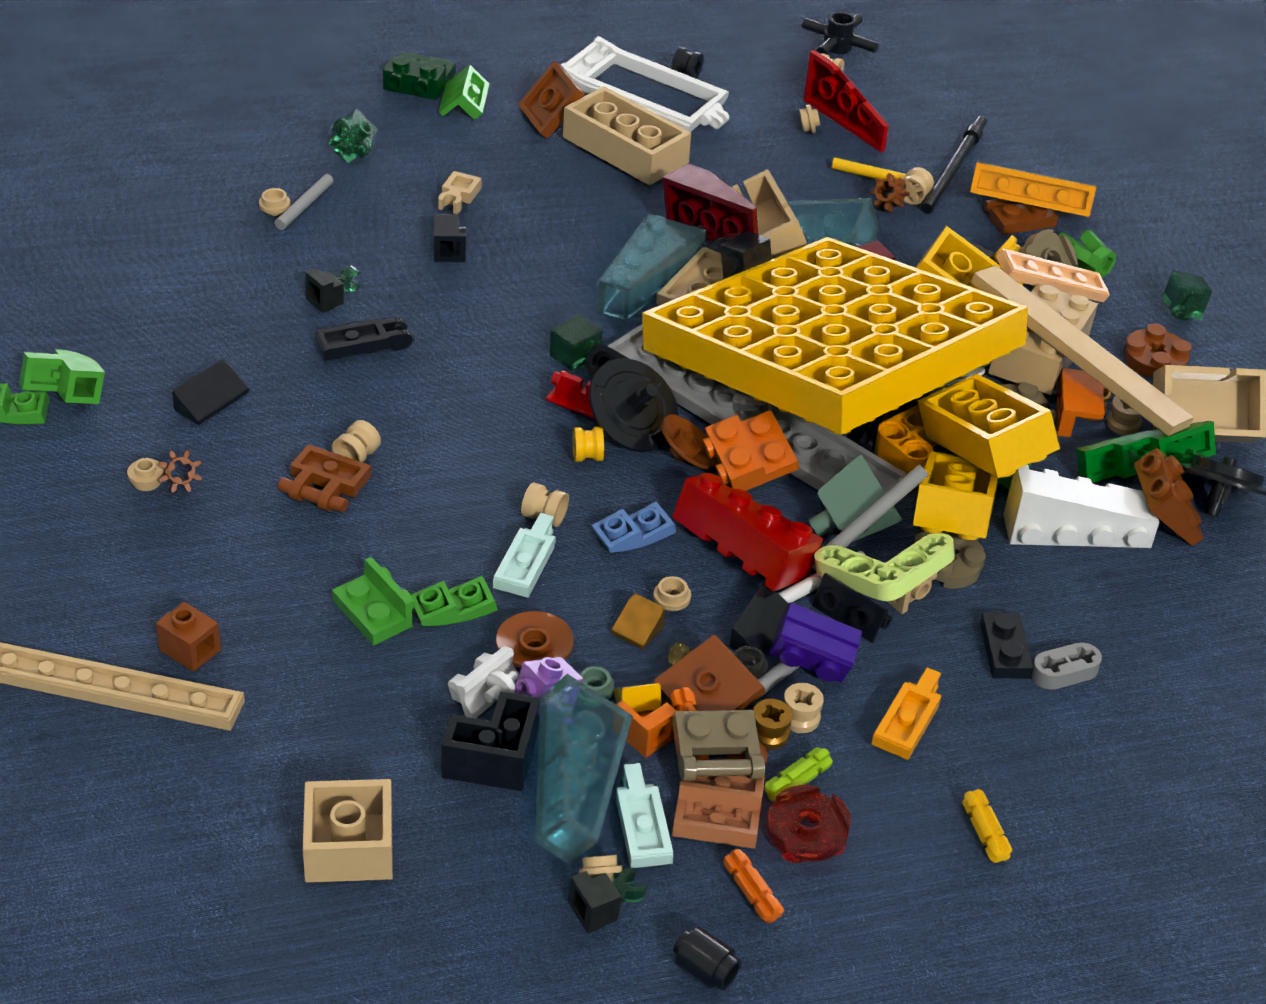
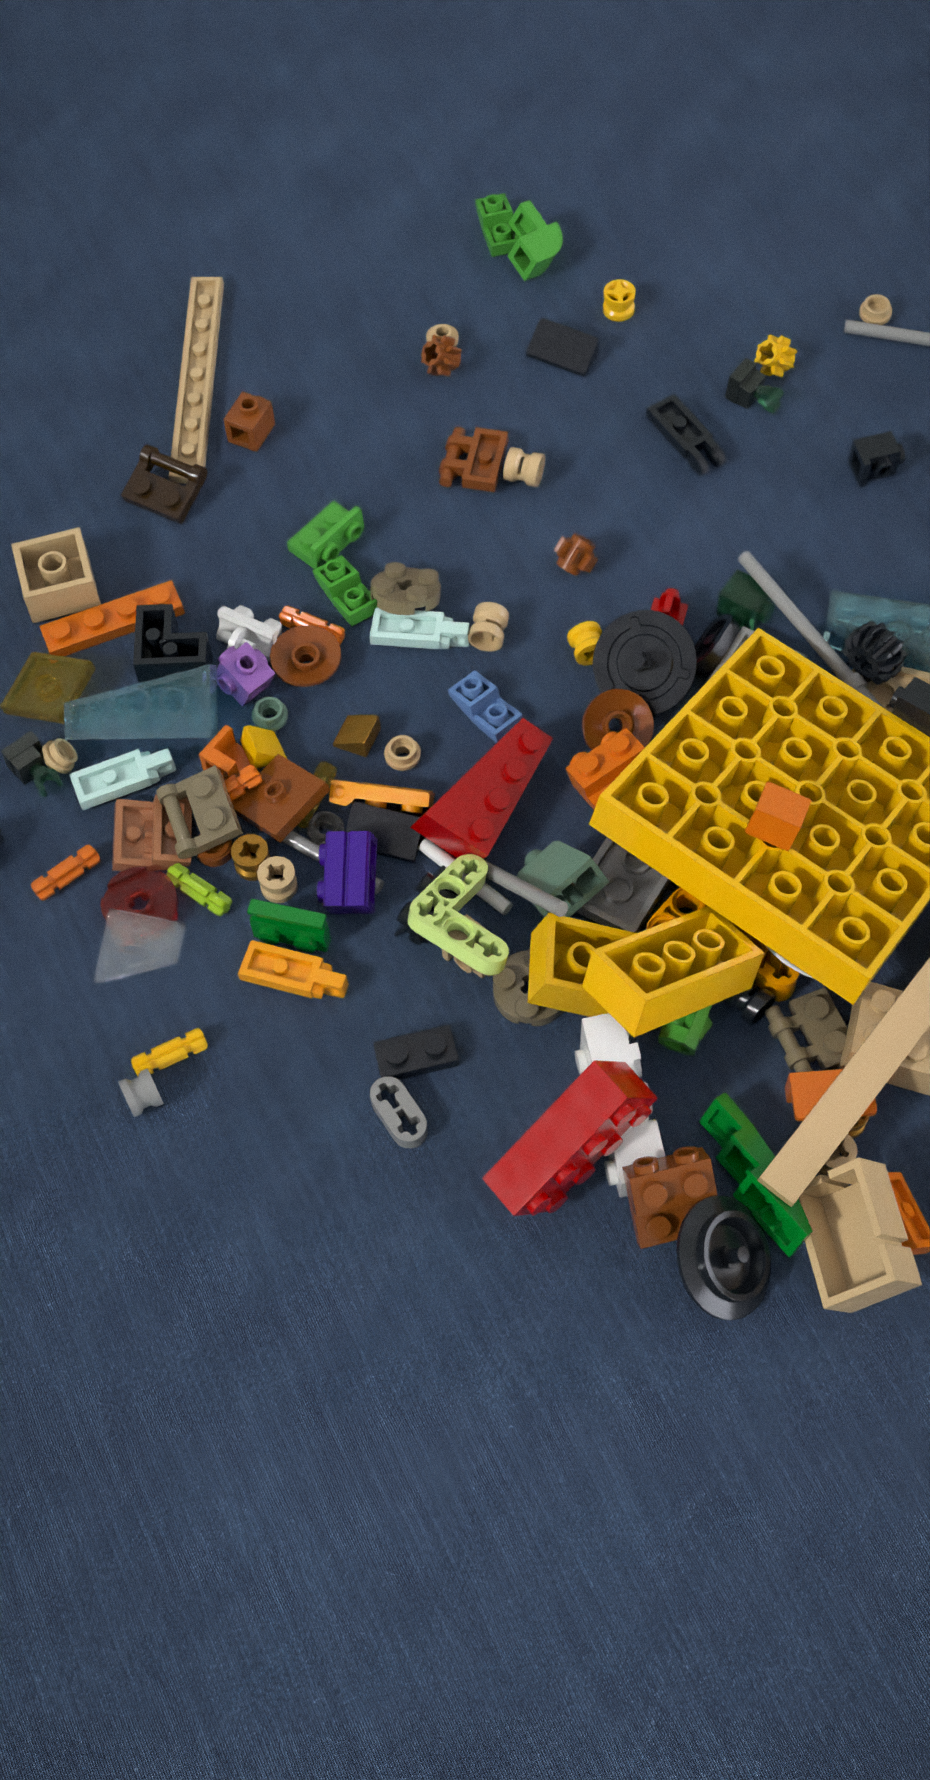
camera: 85 degrees right, 20 degrees up
(170, 343) = (619, 300): none -> yellow wheel
(250, 735) = (160, 494): none -> dark brown plate
(306, 254) = (775, 355): none -> yellow gear
(416, 806) = (105, 620): none -> orange plate
(479, 549) = (405, 588): none -> dark tan plate
(483, 429) = (575, 554): none -> dark orange gear
(484, 639) = (290, 617): none -> orange axle
(499, 869) = (46, 685): none -> clear yellow plate
(612, 307) = (804, 626): none -> light grey bar
(677, 268) = (874, 652): none -> black gear
(722, 610) = (378, 795): none -> light orange hinge
(865, 828) = (137, 945): none -> clear wing
(868, 695) = (289, 925): none -> green plate
(879, 308) = (778, 816): none -> orange panel
(1035, 848) = (140, 1092): none -> light grey wheel
(1135, 521) = (570, 1138): none -> red brick

